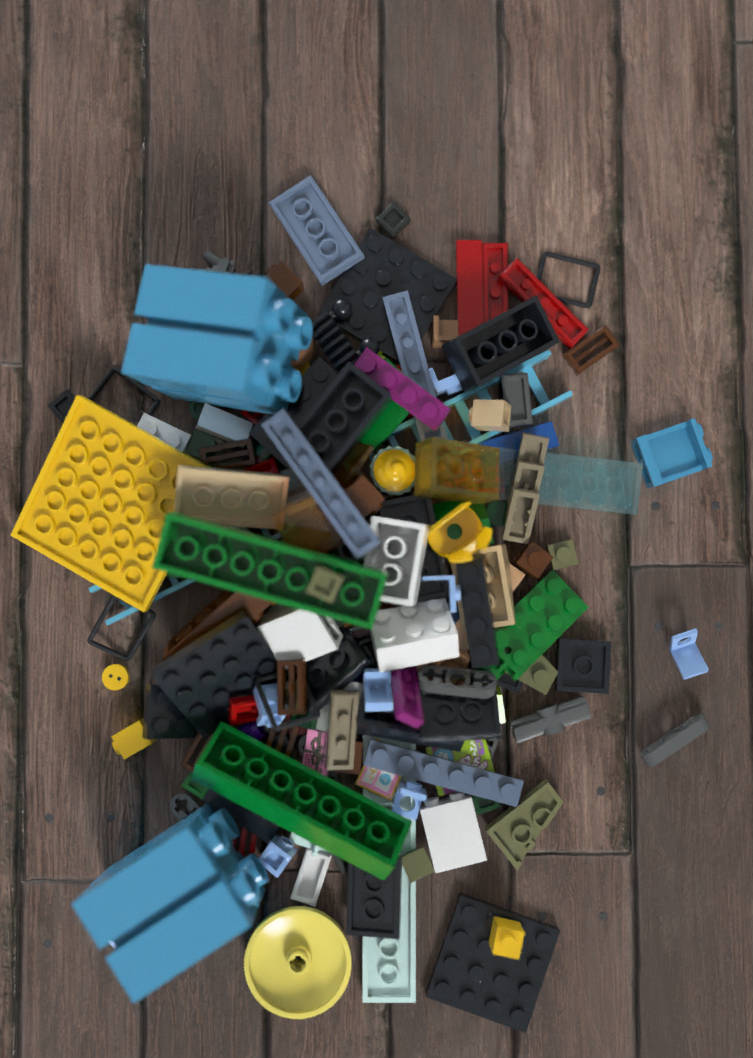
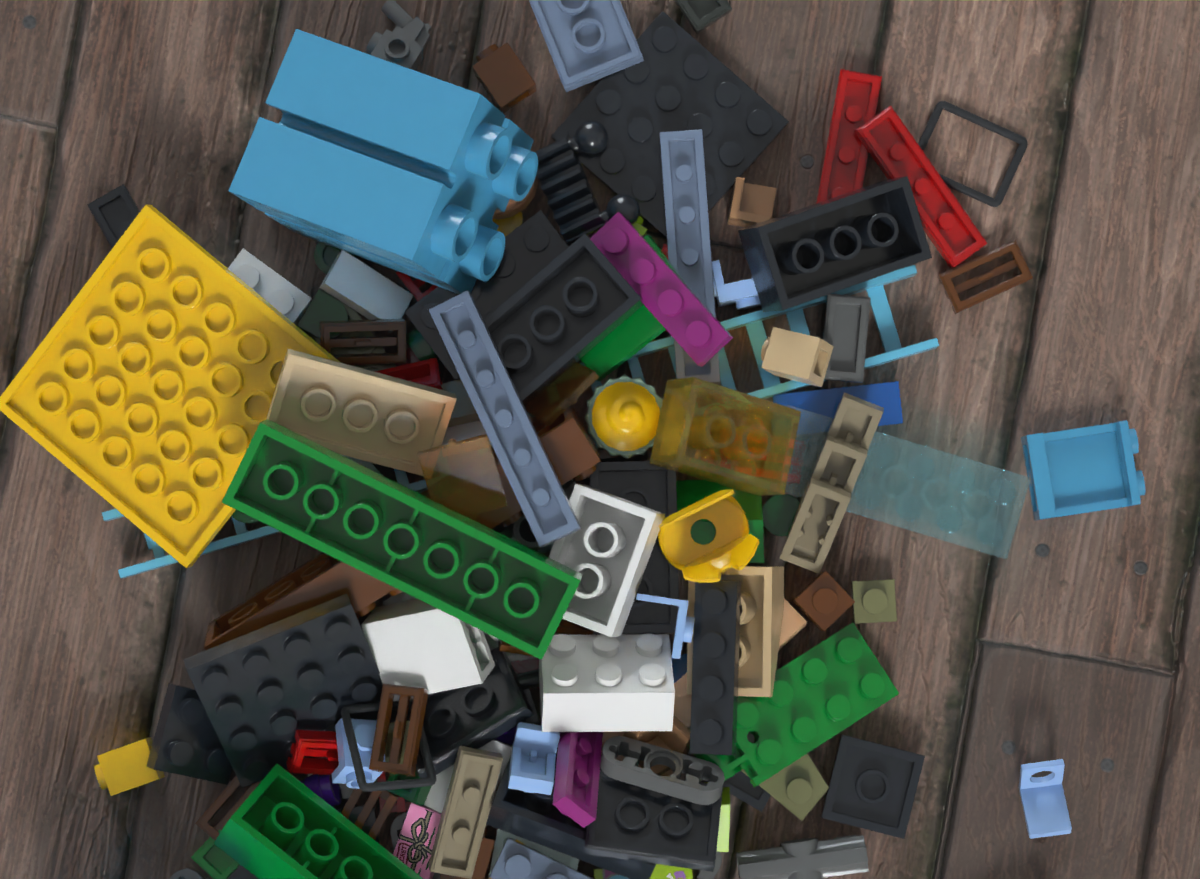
camera: 15 degrees right, 0 degrees up
(115, 677) = (117, 663): yellow tile -> none
(127, 658) = (88, 596): black piece -> none
(131, 381) = (264, 229): black piece -> none
(325, 584) = (482, 576): olive tile -> none
(469, 284) = (806, 135): red tile -> none

